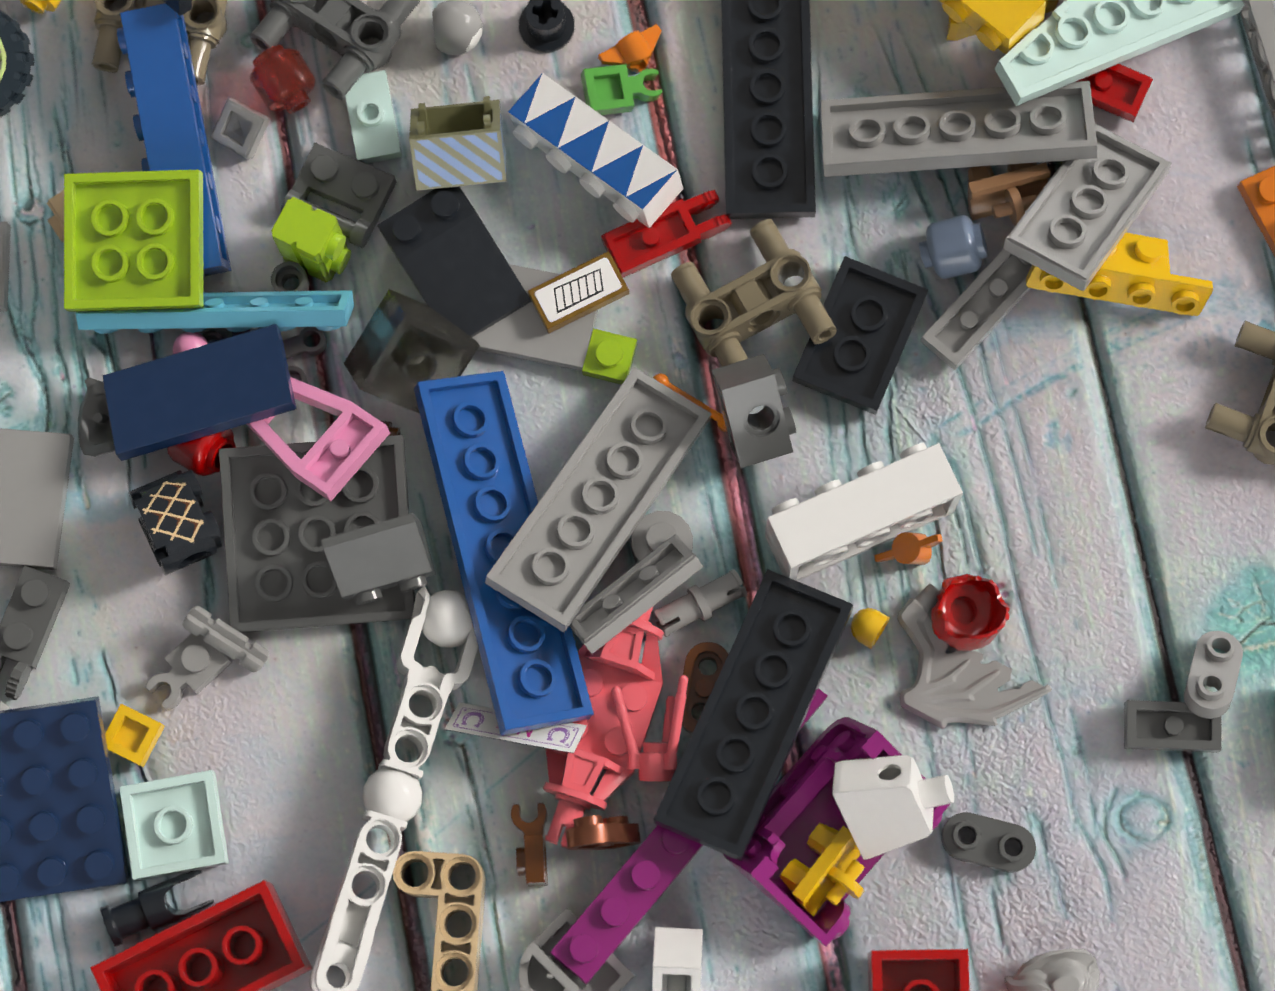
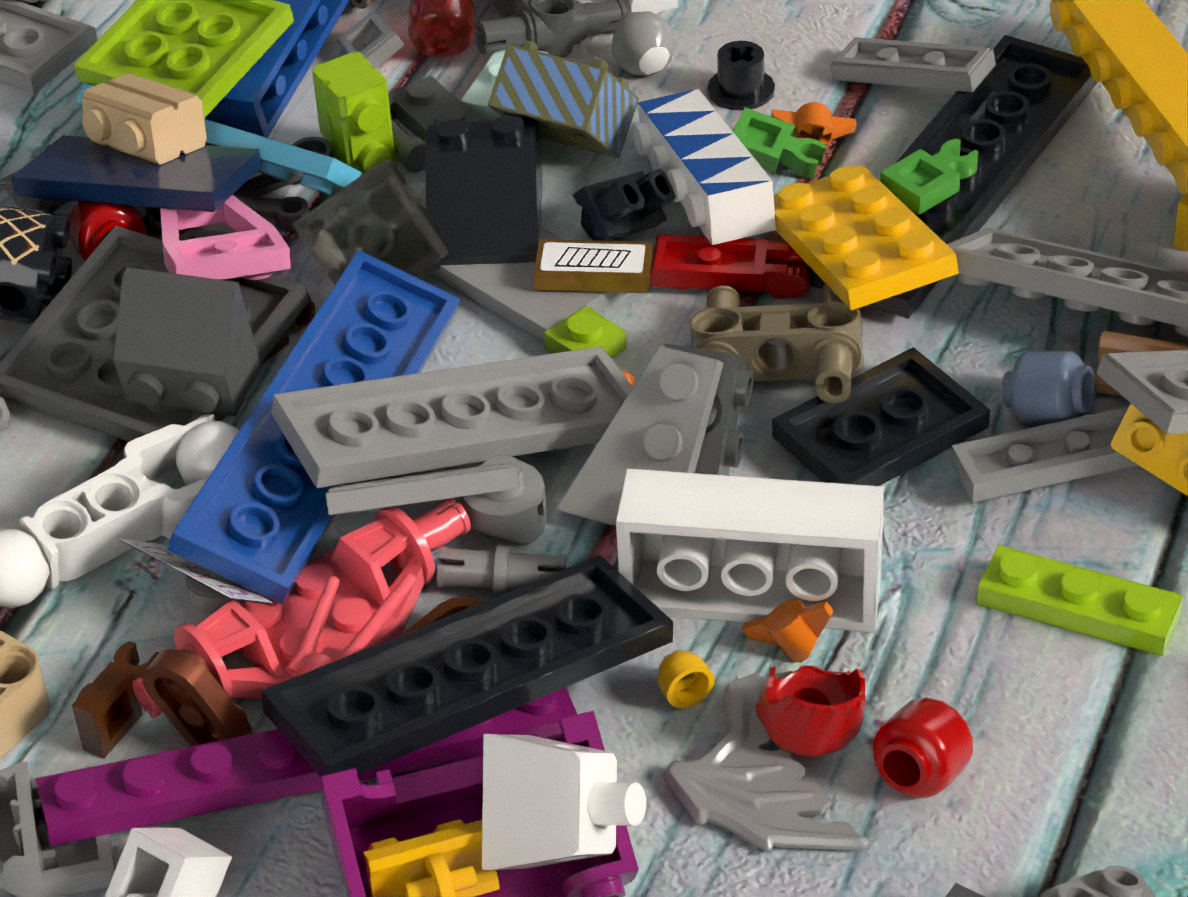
camera: 30 degrees right, 35 degrees down
(174, 347) = (143, 118): none -> tan brick
(563, 223) = (624, 205): none -> black hips
(744, 462) = (653, 430): none -> light grey wing
(757, 178) = (860, 237): none -> yellow plate
(764, 87) = (927, 180): none -> bright green plate
(1049, 606) = (922, 748): none -> red head
(1066, 420) = (1080, 600): none -> lime plate

